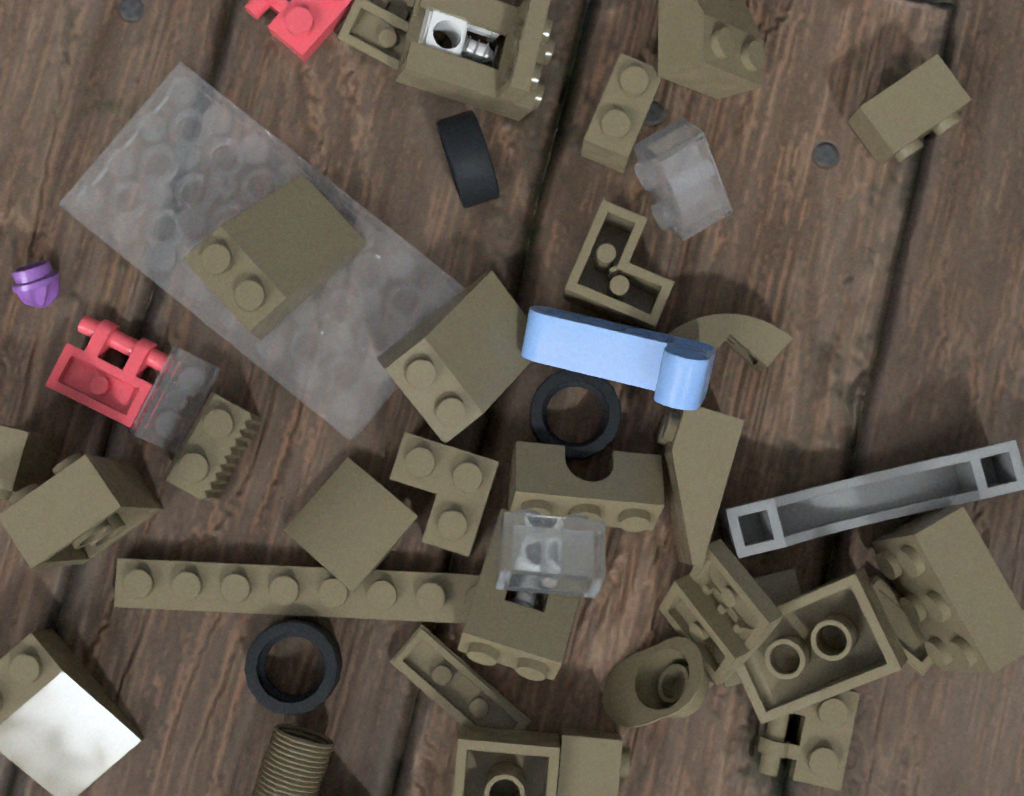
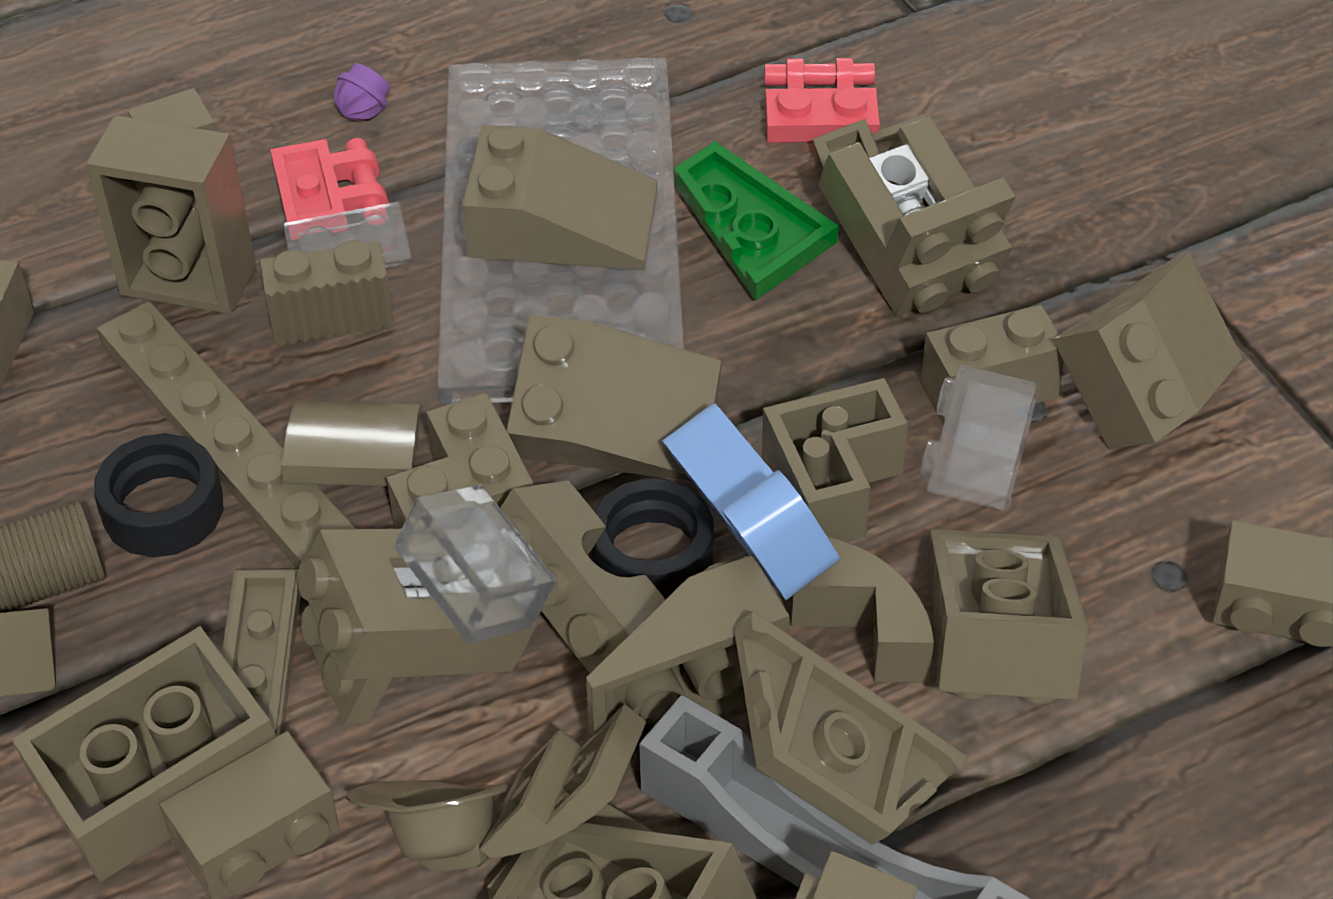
camera: 50 degrees right, 35 degrees down
(372, 137) = (752, 218): none -> green wing
(468, 159) = (806, 275): black tyre -> none
(788, 270) = (1005, 616): none -> dark tan slope
(818, 452) = (835, 736): none -> dark tan wing

